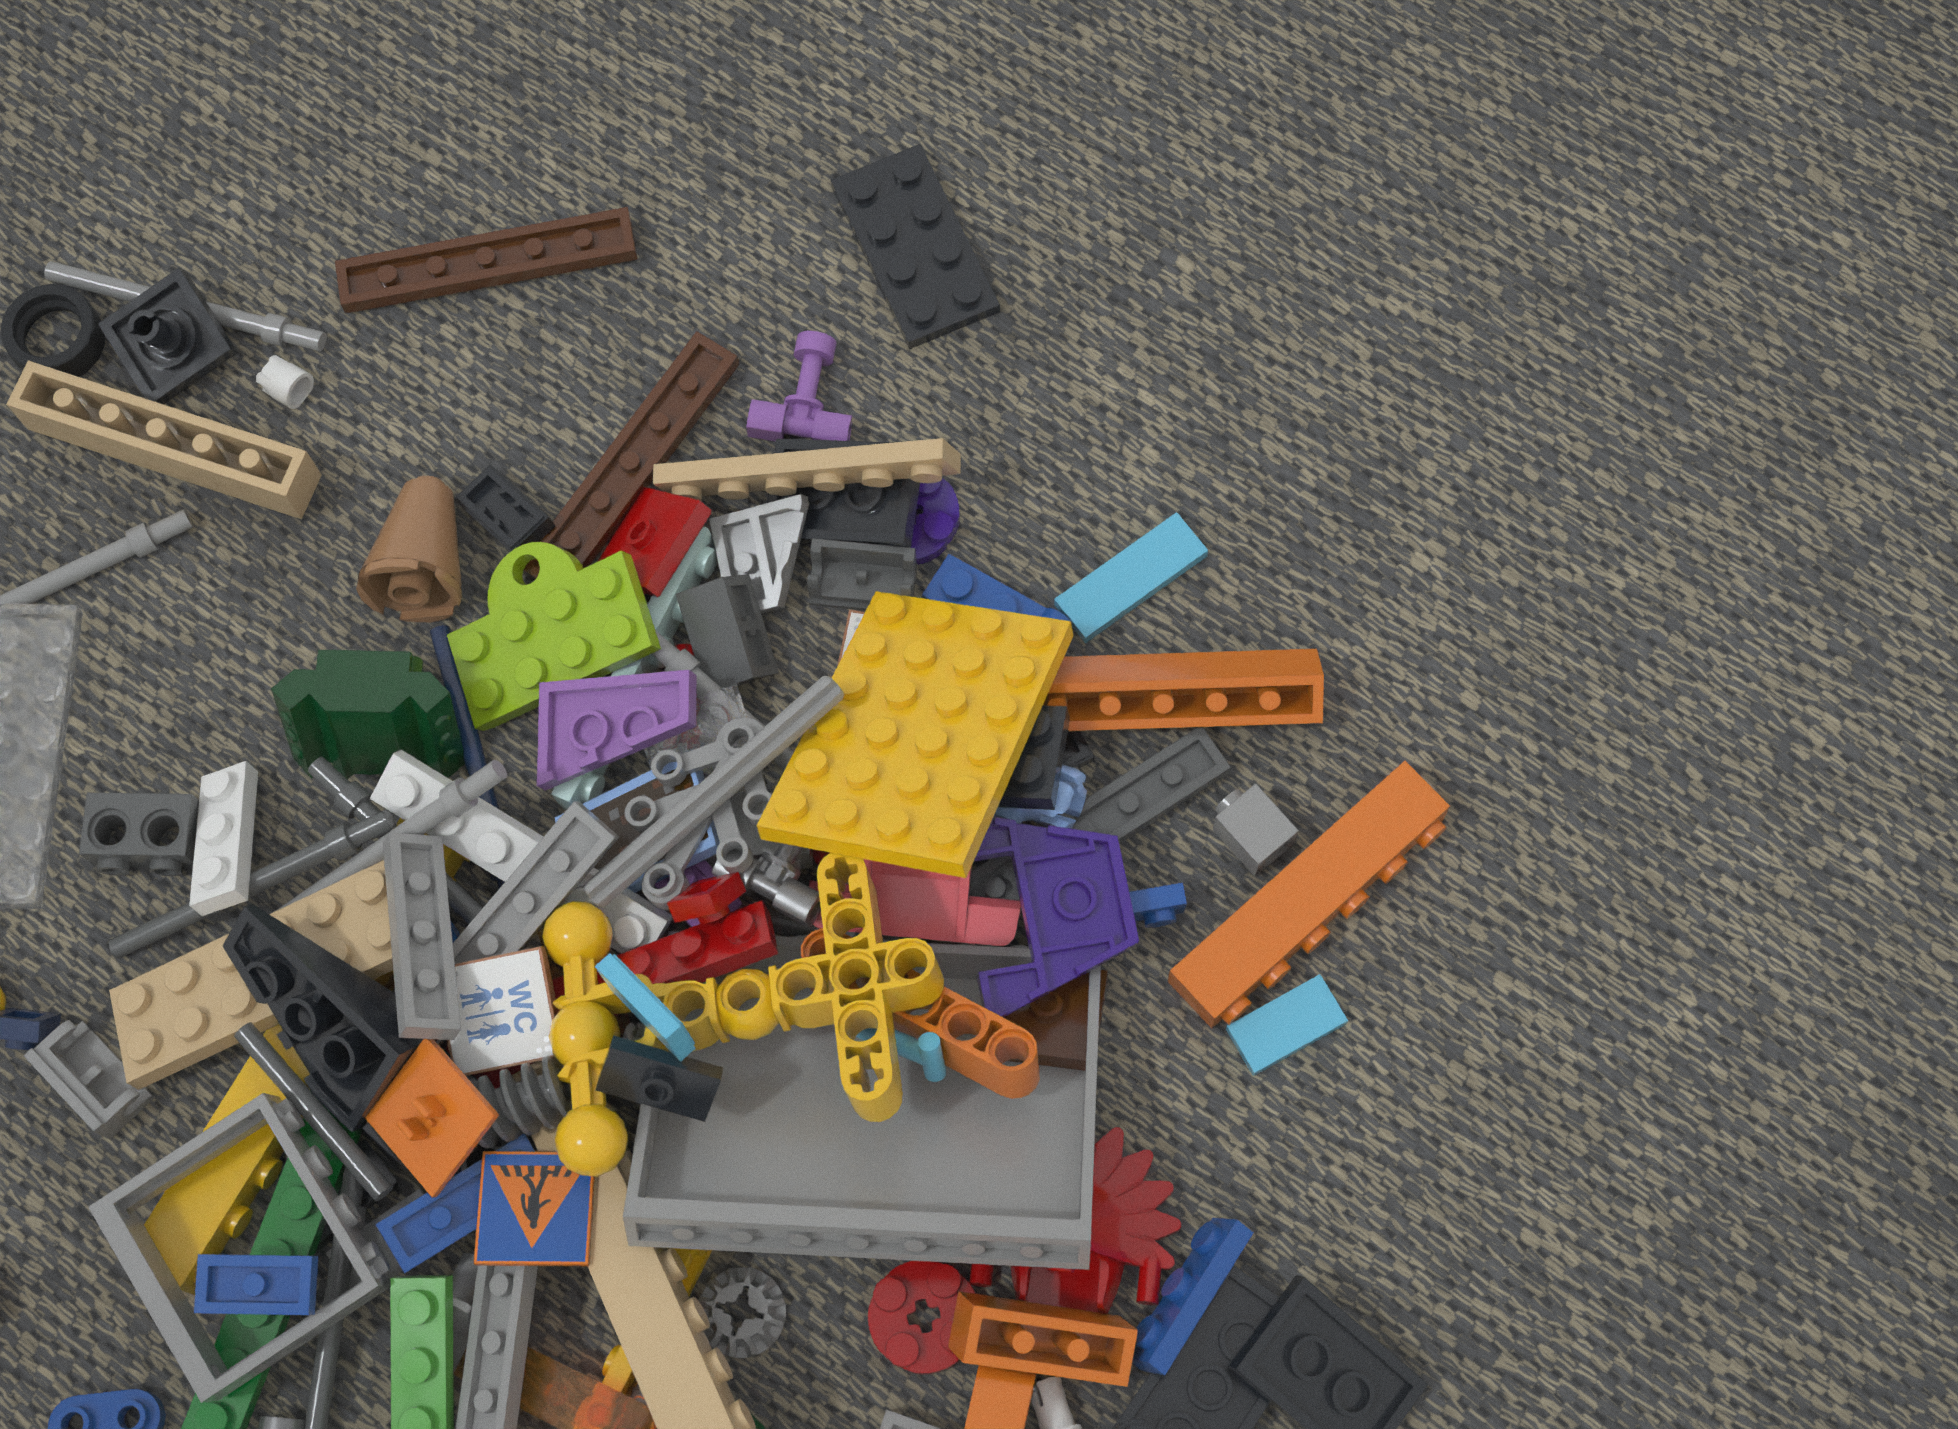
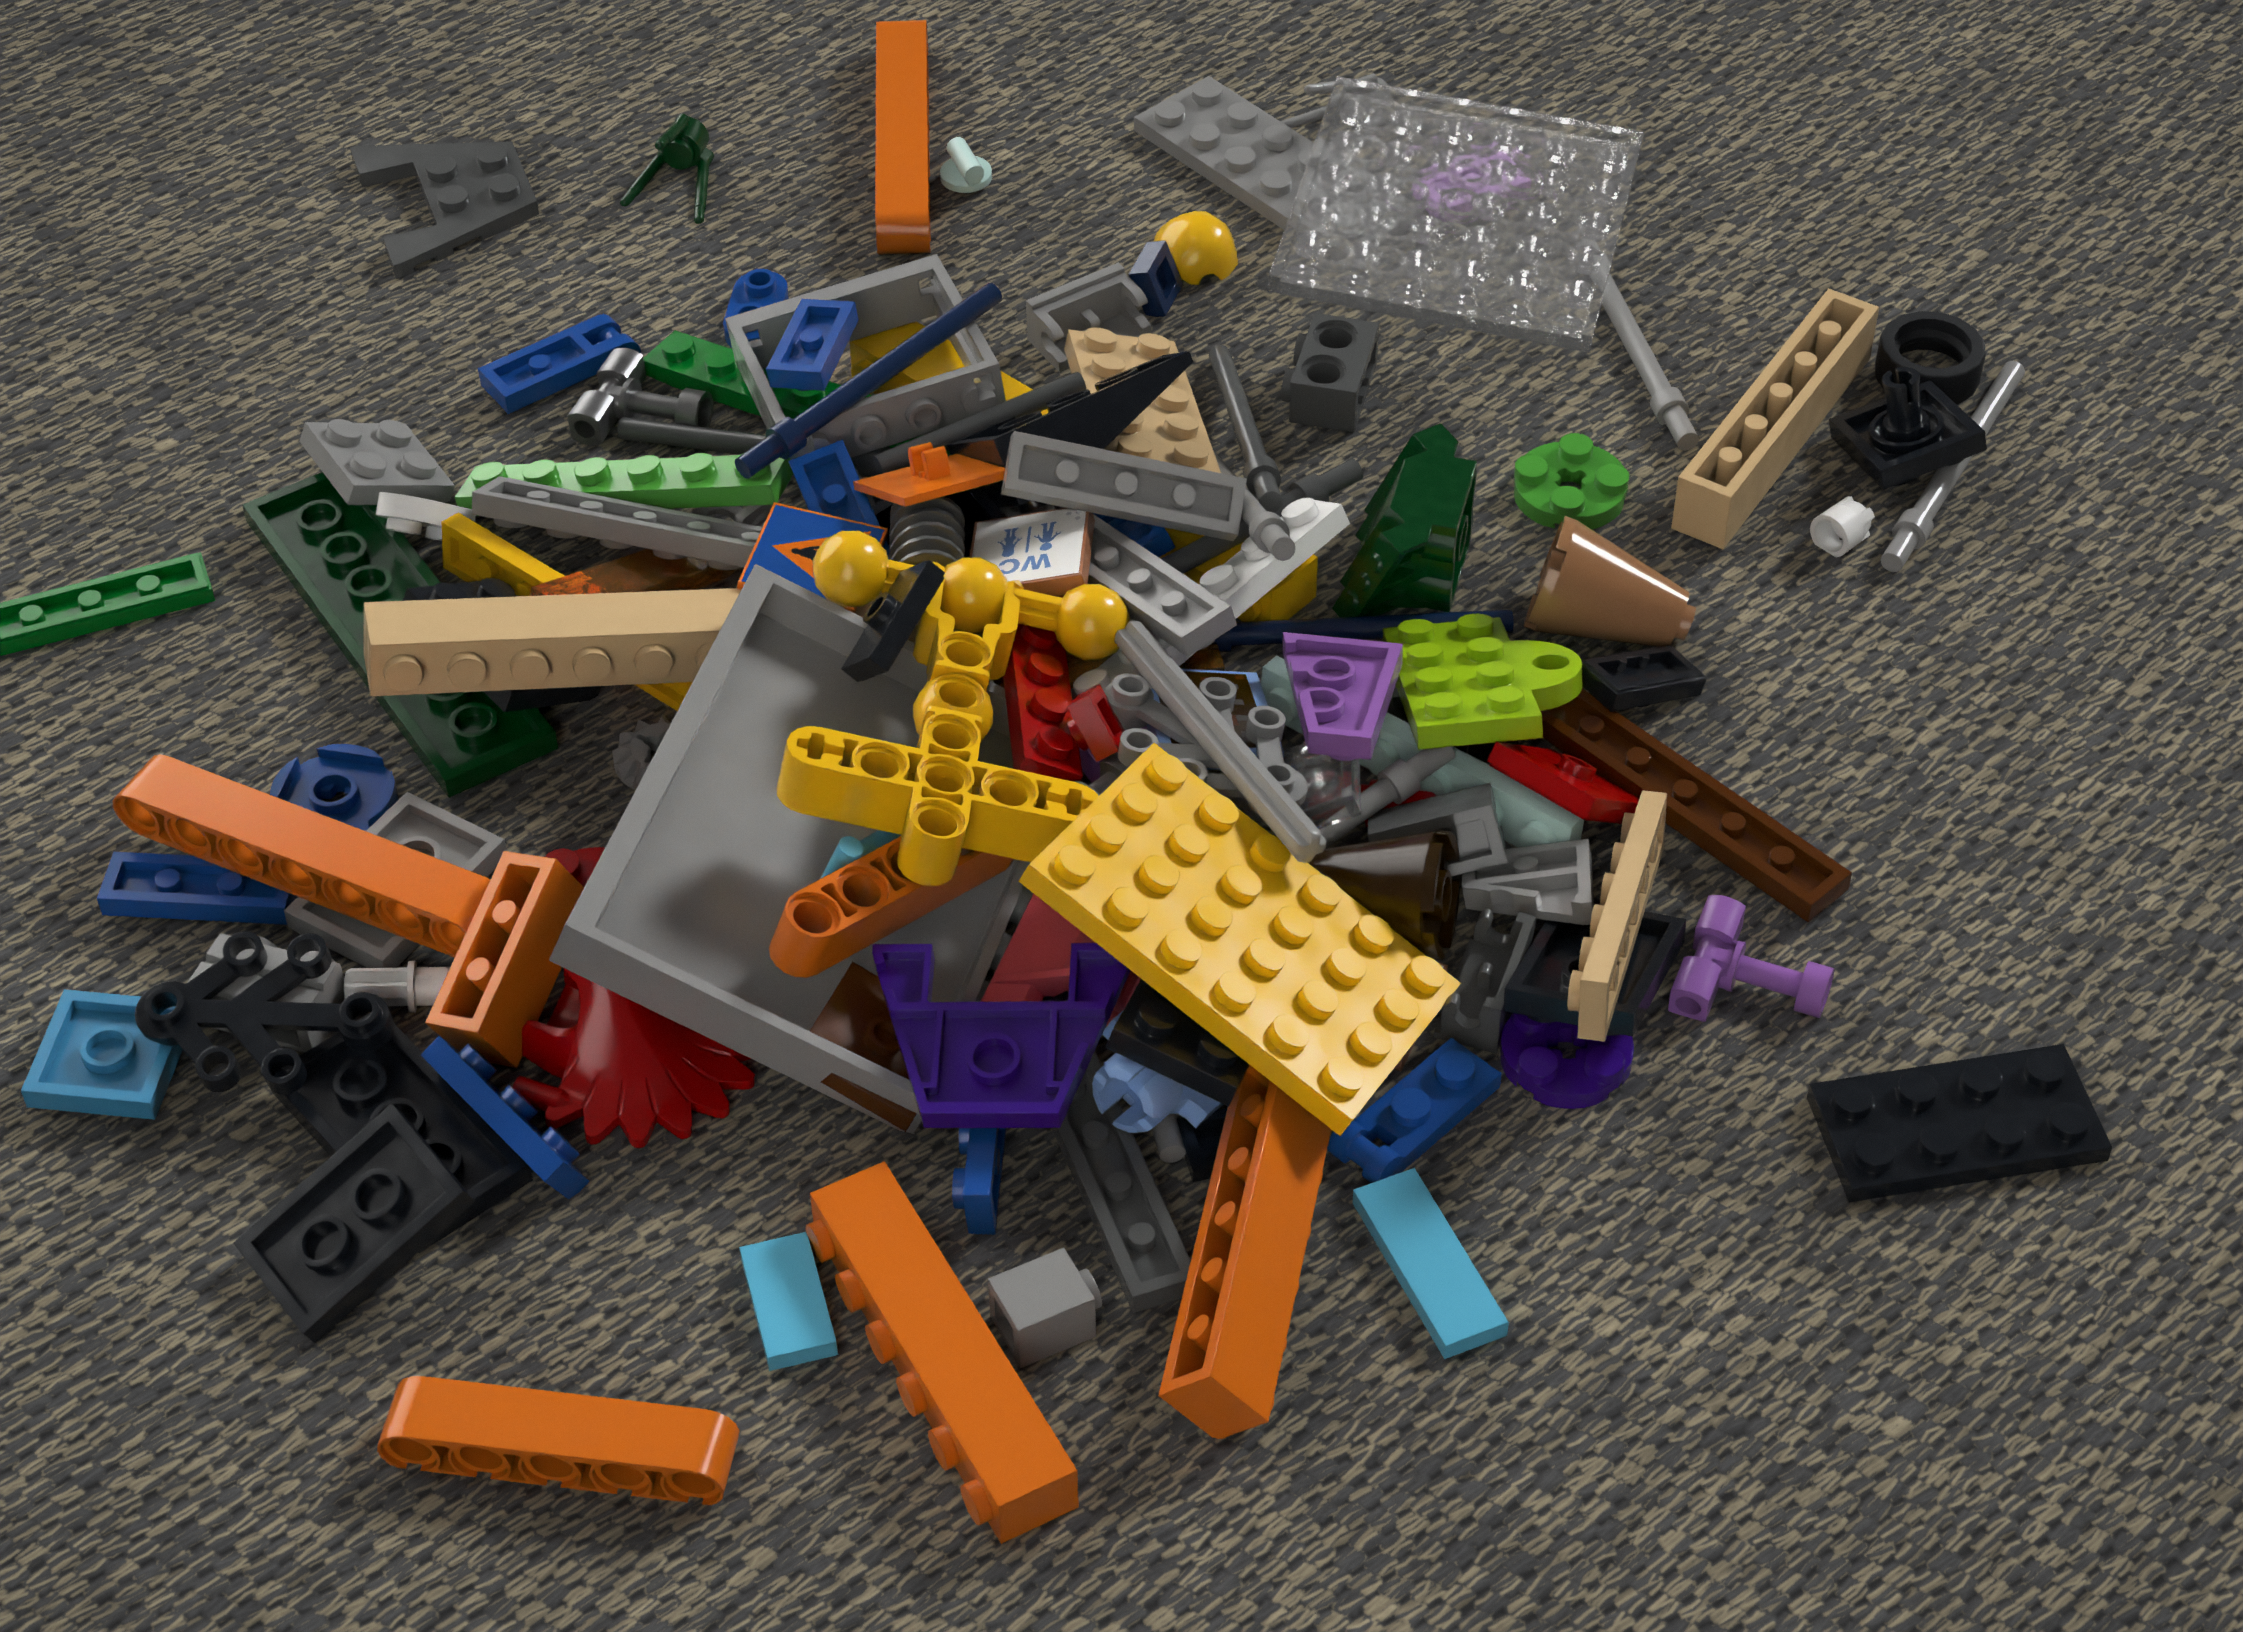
camera: 100 degrees right, 25 degrees down
(224, 838) = (1304, 414): white plate -> none
(244, 583) = (1574, 460): none -> bright green plate
(395, 1267) = (790, 434): none -> dark blue bar
(485, 260) = (1982, 712): reddish brown plate -> none
(646, 1006) = (964, 598): medium azure tile -> none
(801, 644) = (1402, 884): none -> dark brown cone
(1468, 1152) = (559, 1437): none -> orange beam

